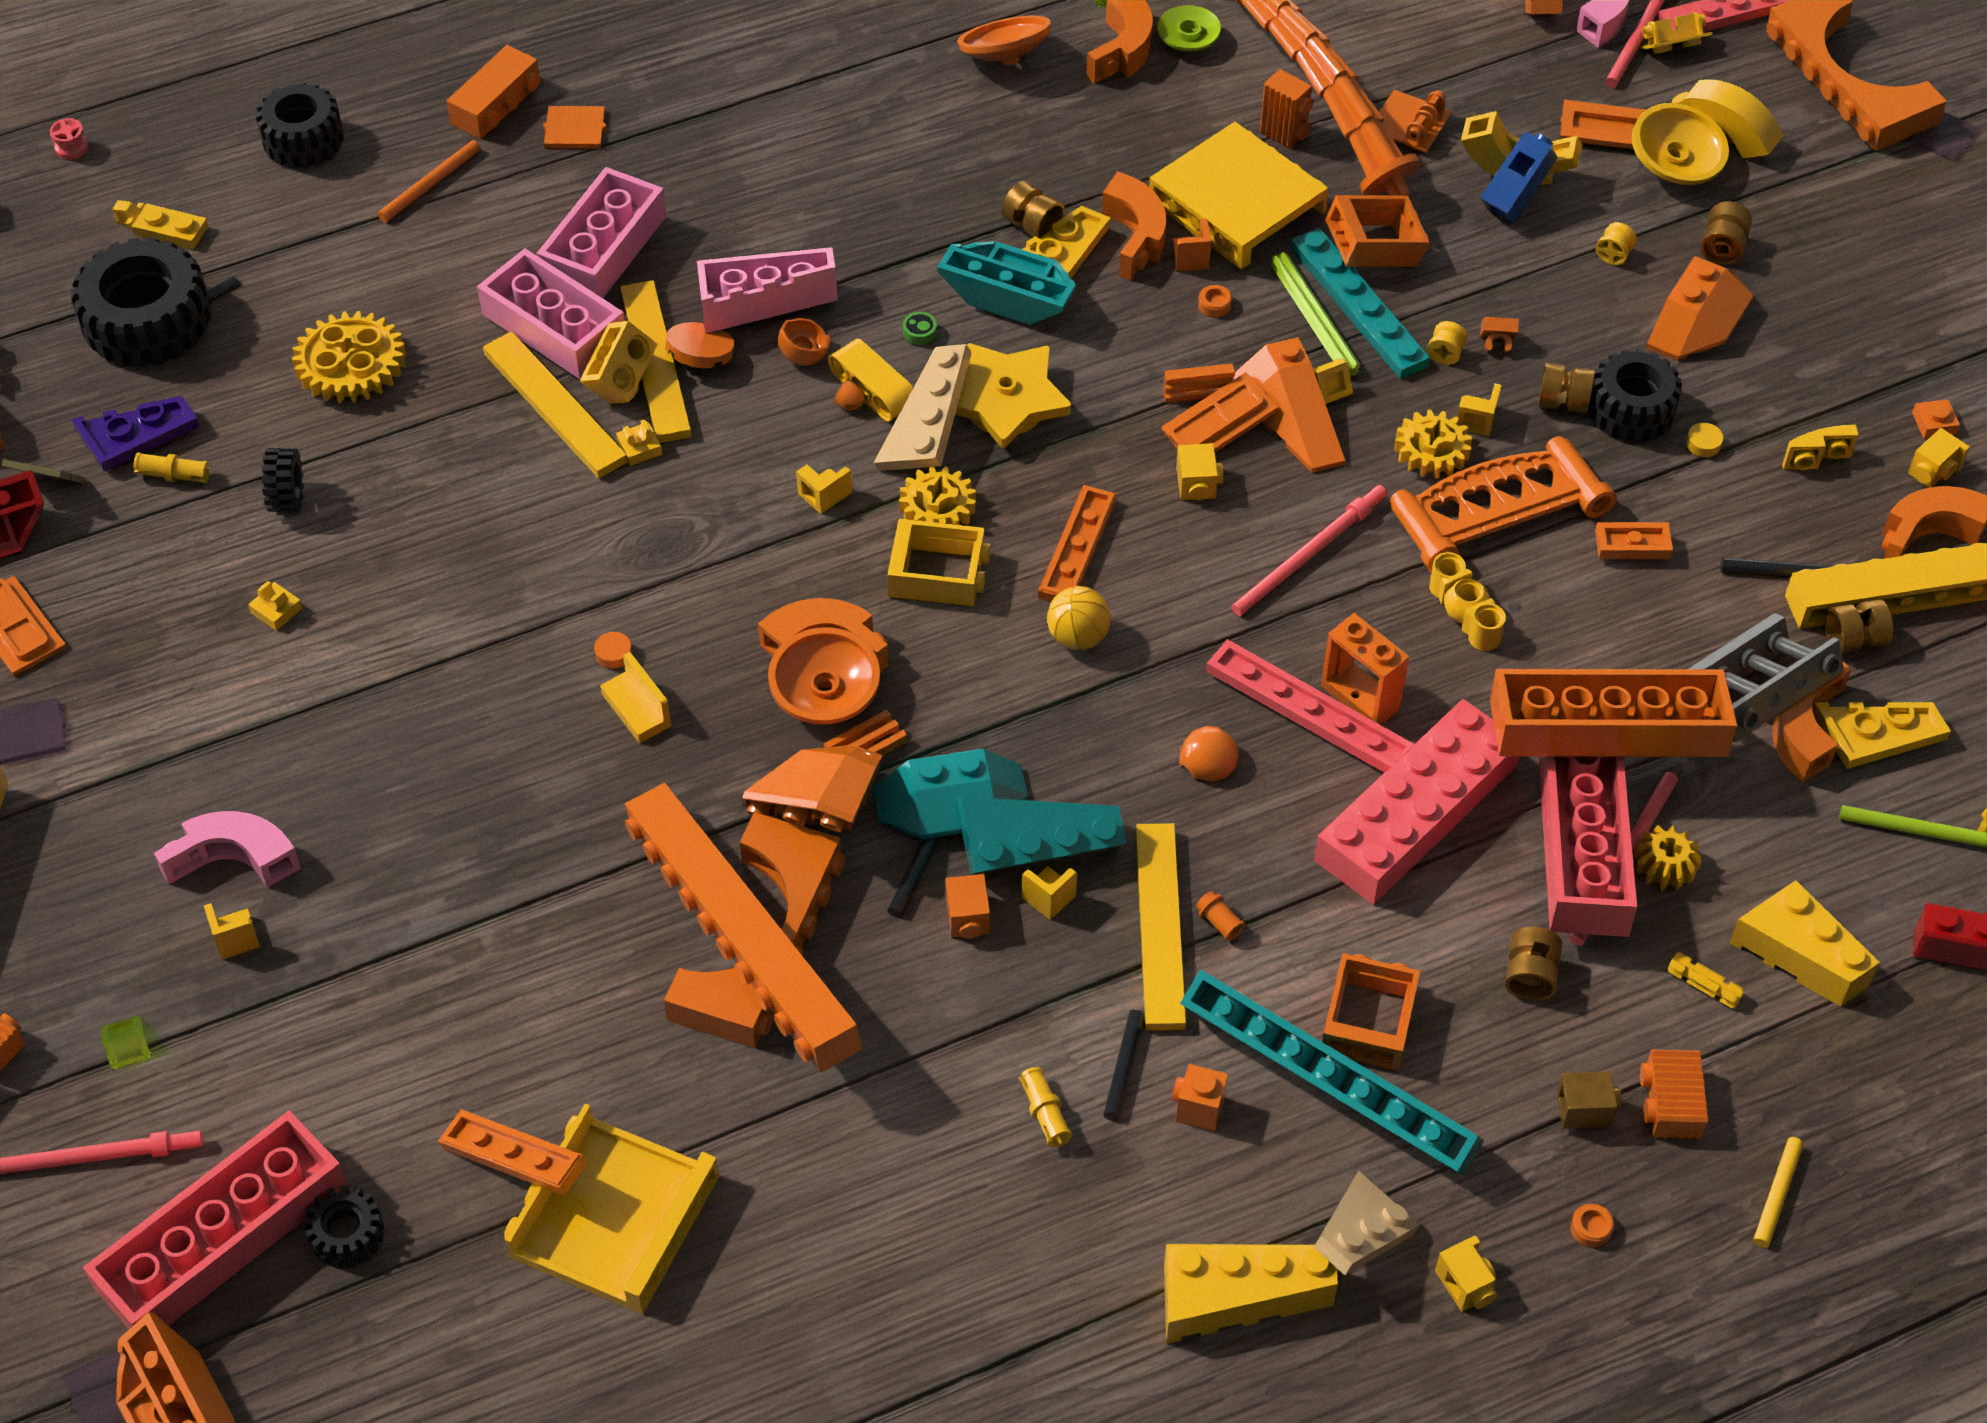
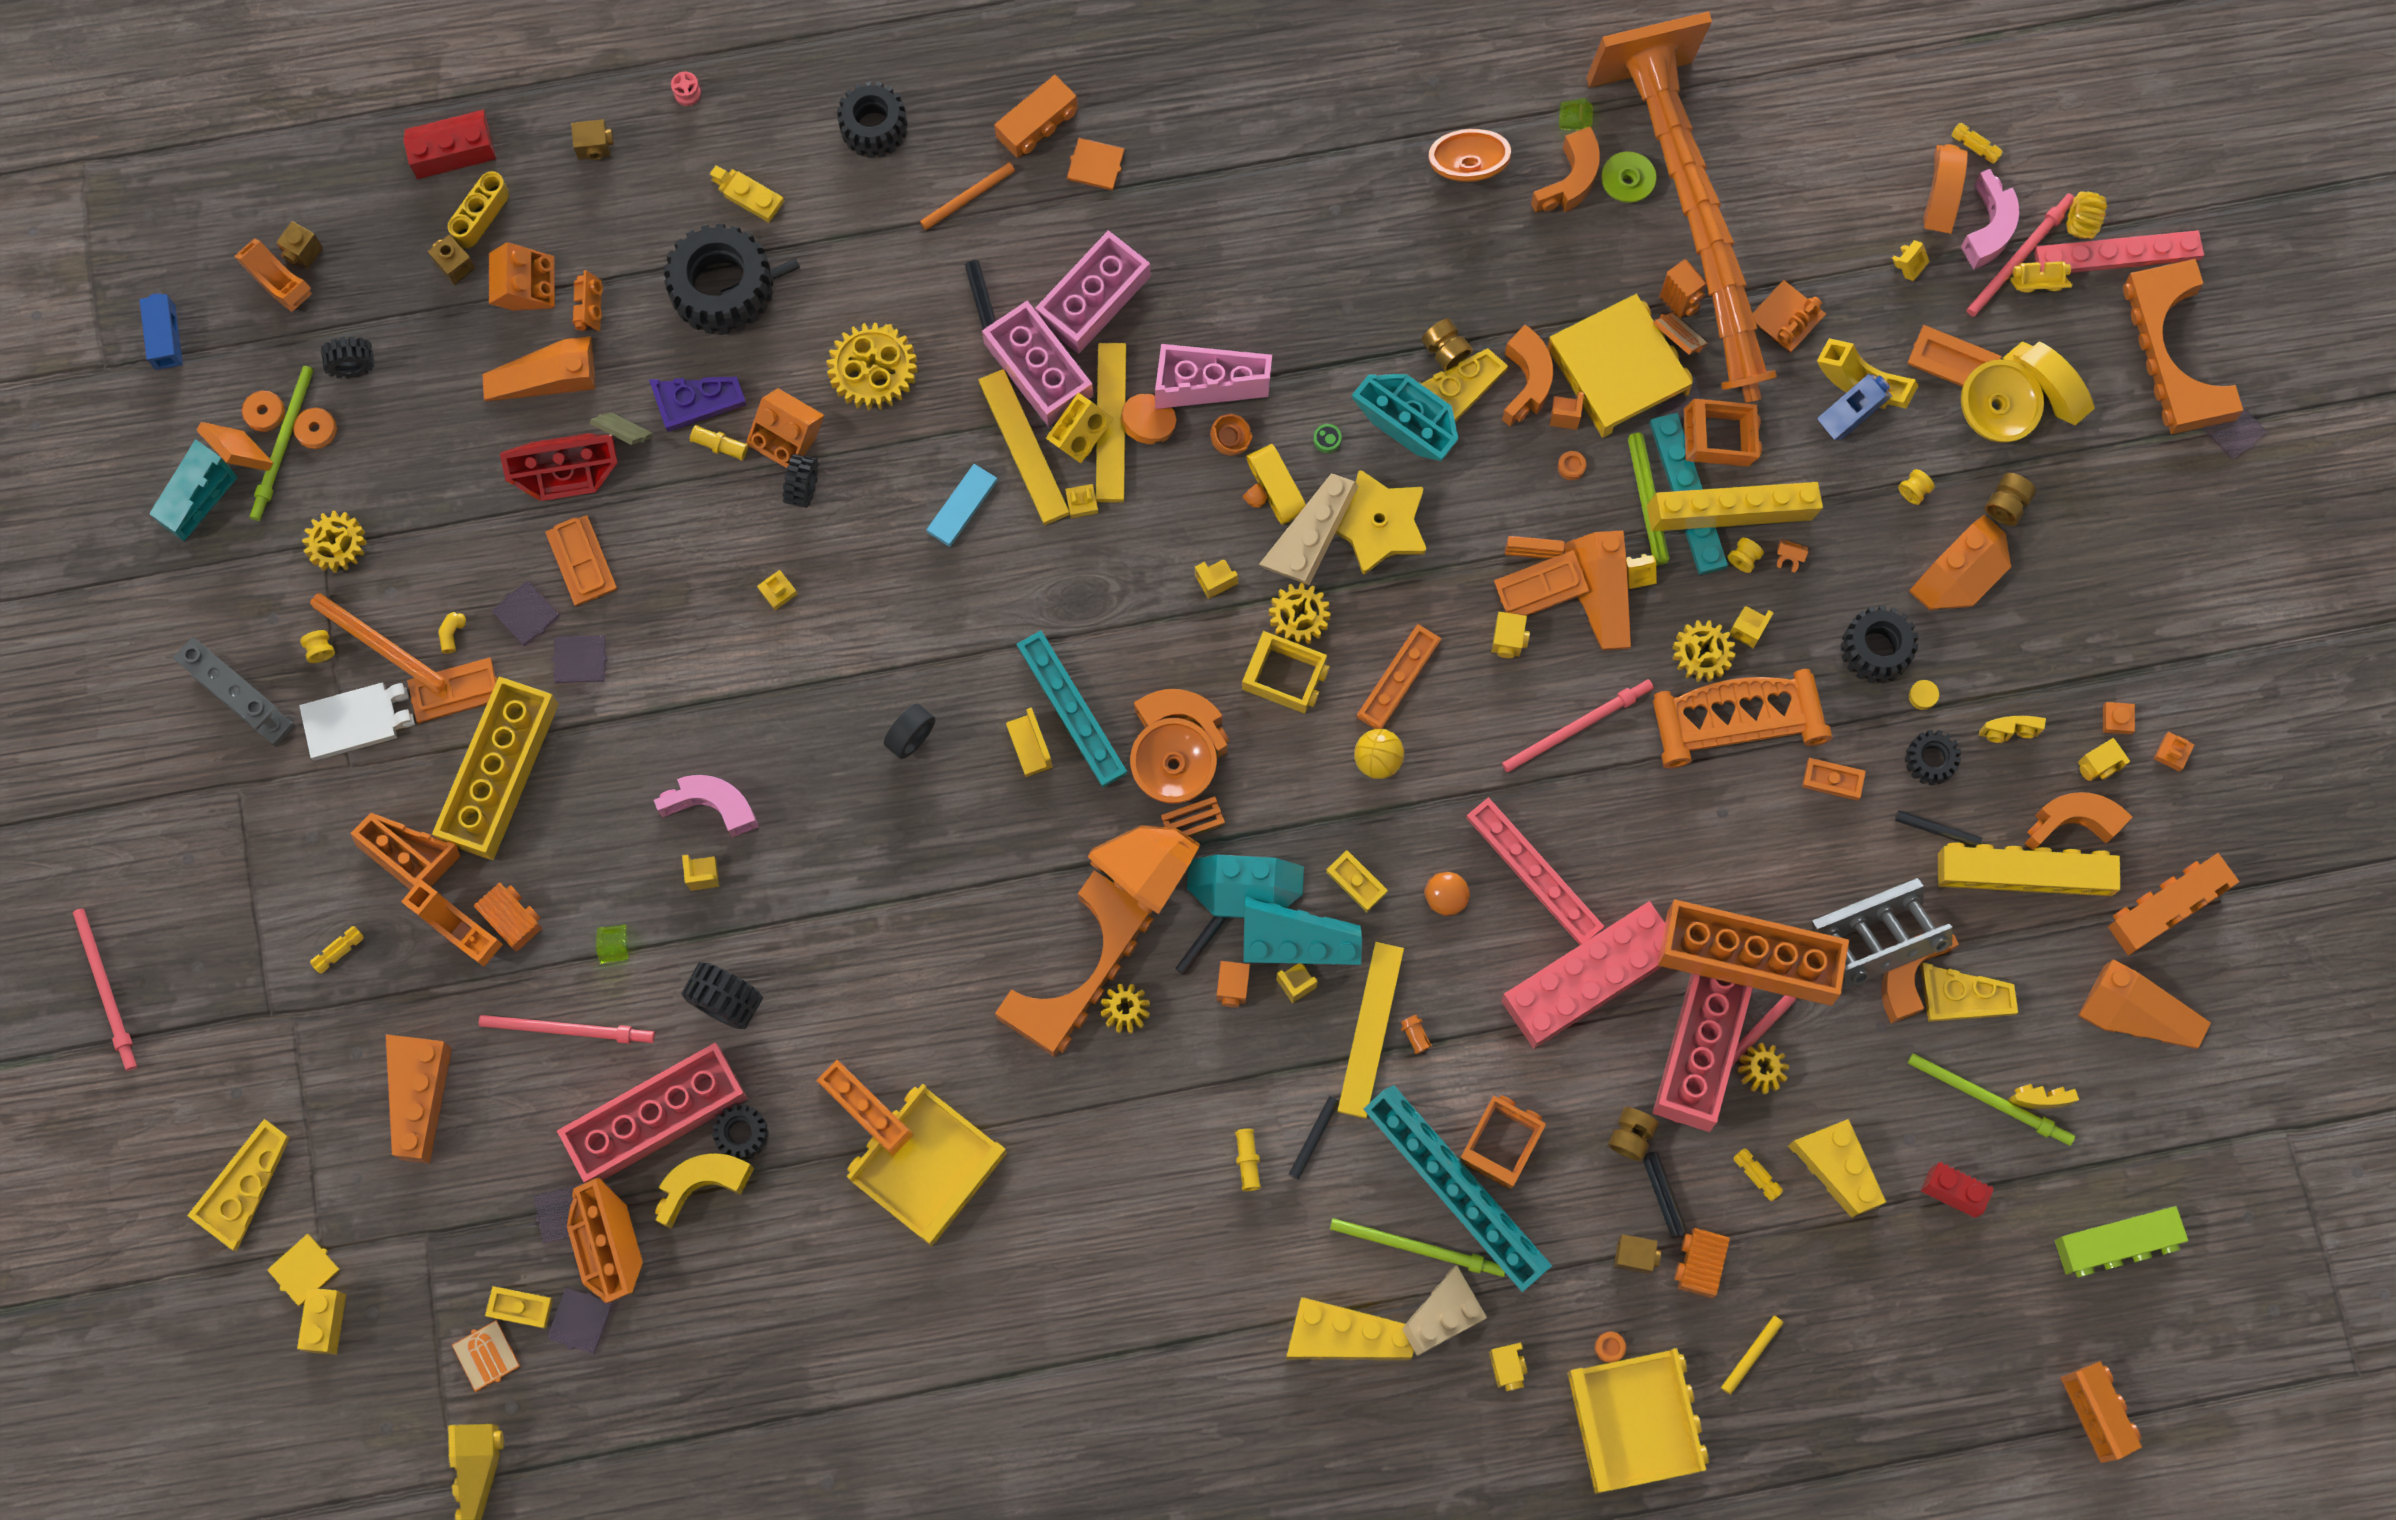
camera: 15 degrees right, 20 degrees up
(244, 431) = (783, 427): none -> orange slope
(288, 1055) = (722, 995): none -> black tyre
(298, 1285) = (696, 1173): none -> yellow arch
(463, 263) = (980, 293): none -> black axle
(478, 711) = (909, 731): none -> black tyre
(491, 475) = (962, 505): none -> medium azure tile
(610, 649) = (1022, 691): orange tile -> none
(681, 654) = (1072, 709): none -> teal plate
(743, 929) = (1062, 970): orange brick -> none
(838, 962) = (1134, 1012): none -> yellow gear
(1092, 763) = (1356, 881): none -> yellow plate
(1200, 1097) = (1359, 1181): orange brick -> none
(1296, 151) = (1680, 333): none -> orange piece
(1343, 677) = (1580, 848): orange window -> none
(1380, 1163) = (1474, 1263): none -> lime bar
(1417, 292) = (1734, 506): none -> yellow brick
(1467, 601) = (1684, 819): yellow piece -> none
(1528, 45) = (1912, 261): none -> yellow tile
(1566, 388) = (1826, 624): pearl gold wheel -> none
(1597, 1029) = (1664, 1195): none -> black axle
(1661, 1306) = (1637, 1421): none -> yellow panel
(1743, 481) = (1944, 745): none -> black tyre
(1864, 626) = (1970, 903): pearl gold wheel -> none

